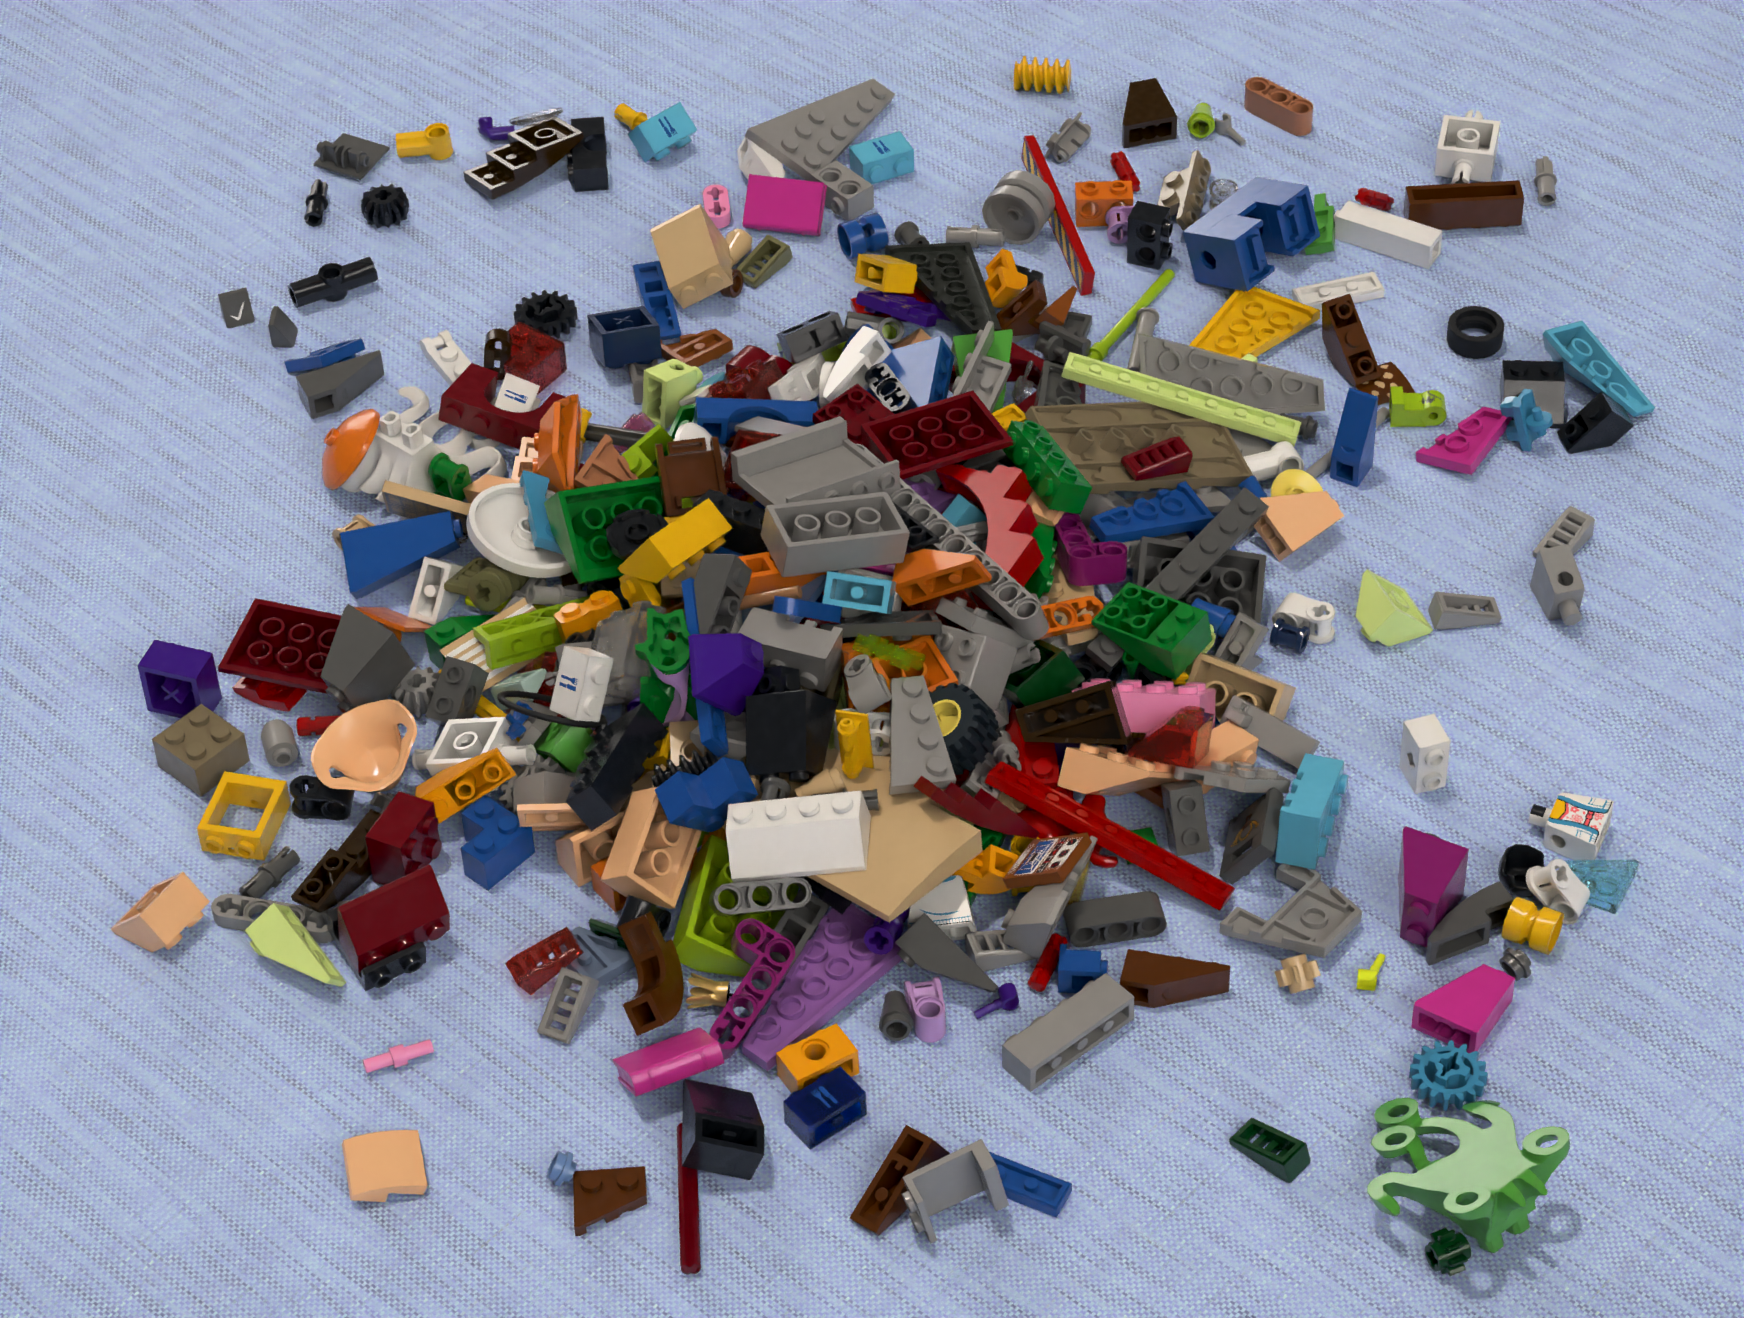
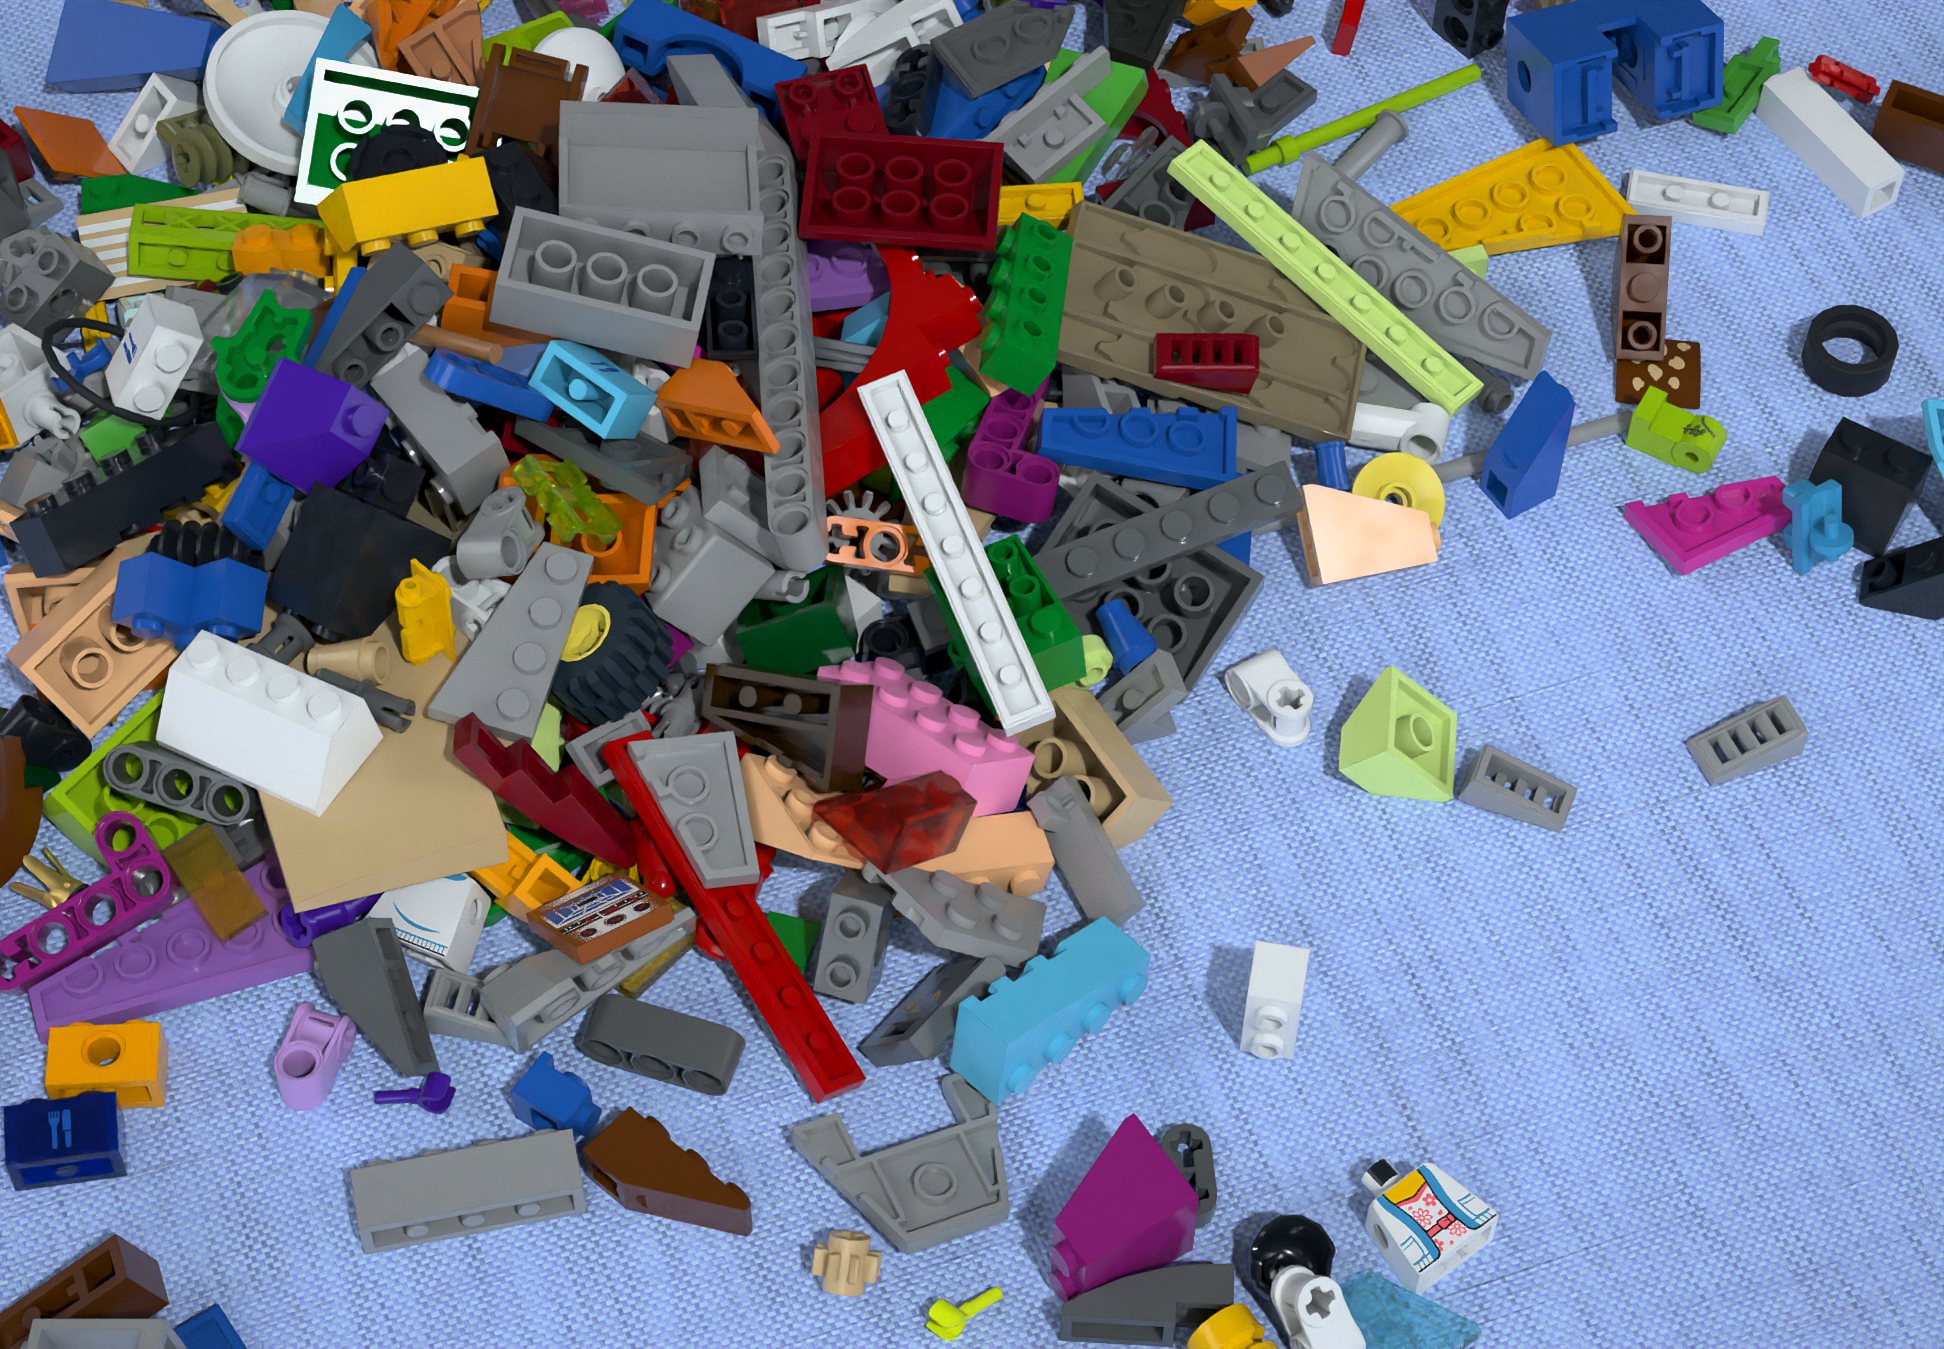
camera: 25 degrees right, 10 degrees up
(815, 942) = (215, 883): none -> clear yellow plate
(895, 1017) = (254, 1051): dark grey cone -> none
(927, 345) = (1002, 45): none -> dark grey tile
(1046, 963) = (498, 1084): red axle -> none
(1062, 780) = (703, 802): none -> light grey wing
(1114, 596) = (956, 554): none -> white tile
(1289, 636) = (1211, 708): dark blue bush -> none
(1558, 584) = (1673, 818): light grey torso -> none

